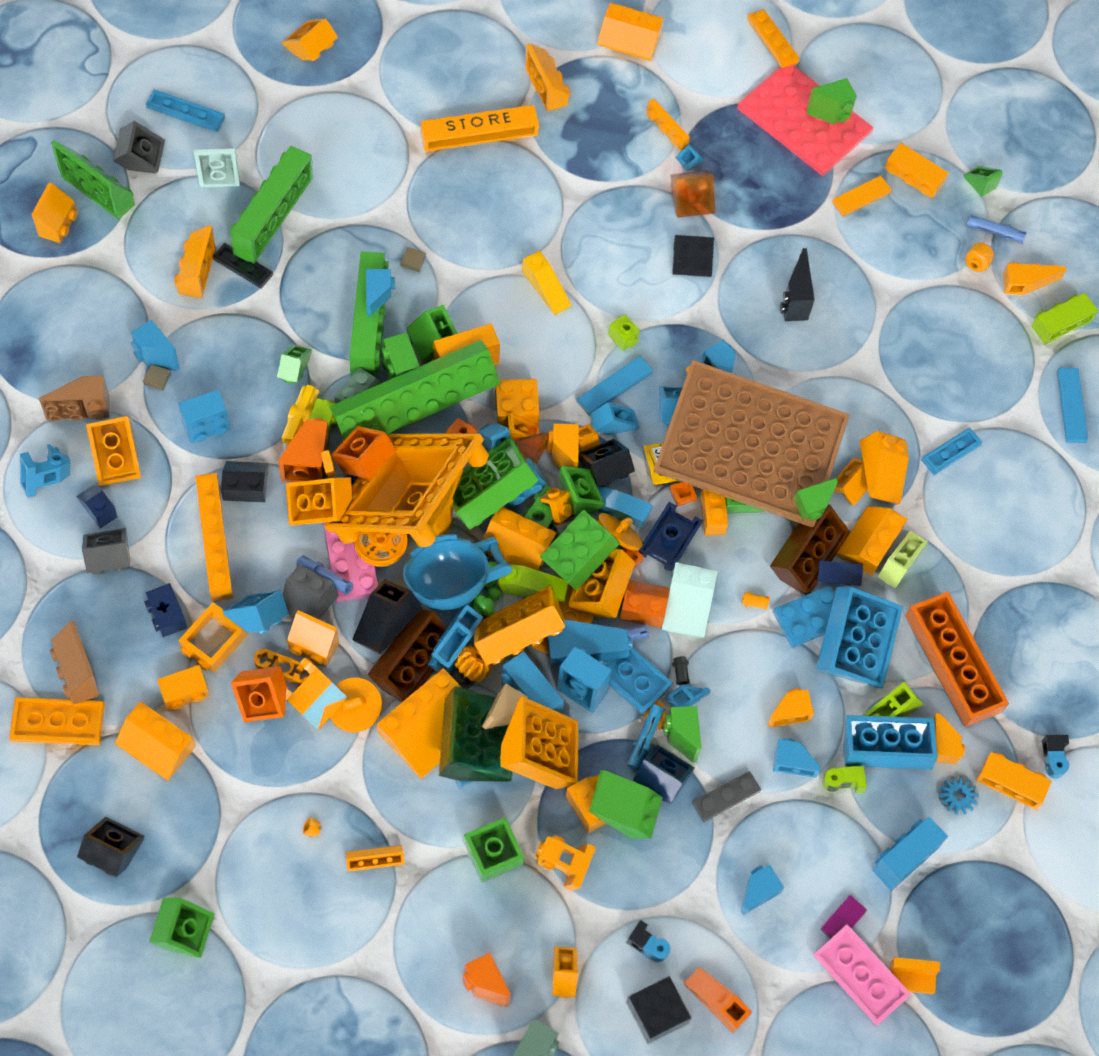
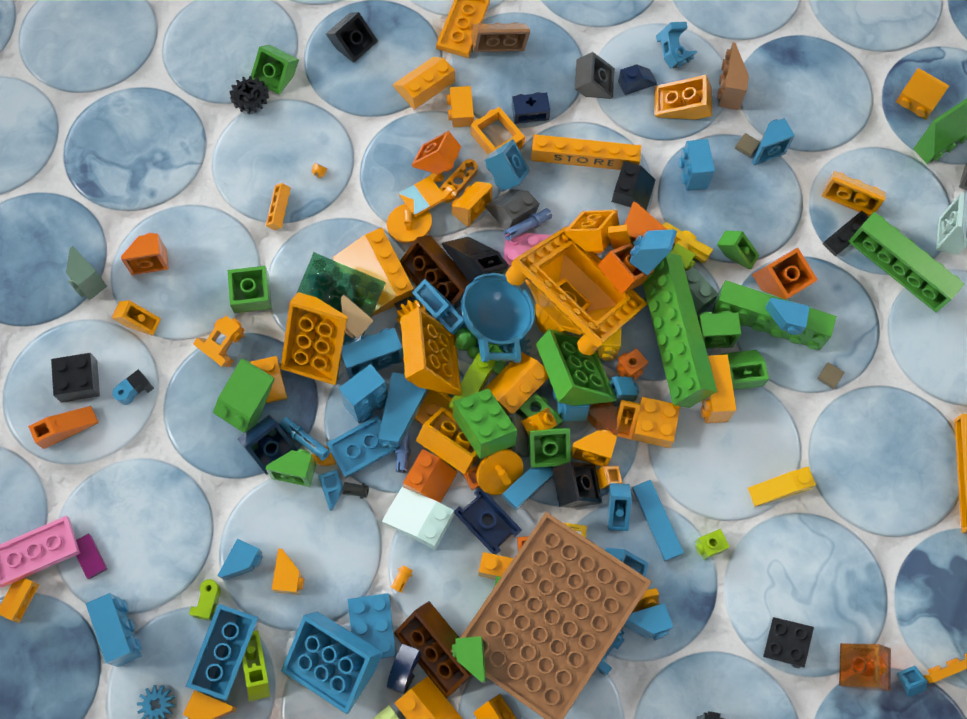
camera: 110 degrees right, 5 degrees up
(234, 939) = (241, 98): none -> black gear
(321, 308) = (785, 275): none -> orange slope
(339, 424) = (651, 249): none -> dark azure slope
(726, 796) = (231, 493): dark grey plate -> none
(760, 888) = (139, 492): dark azure slope -> none

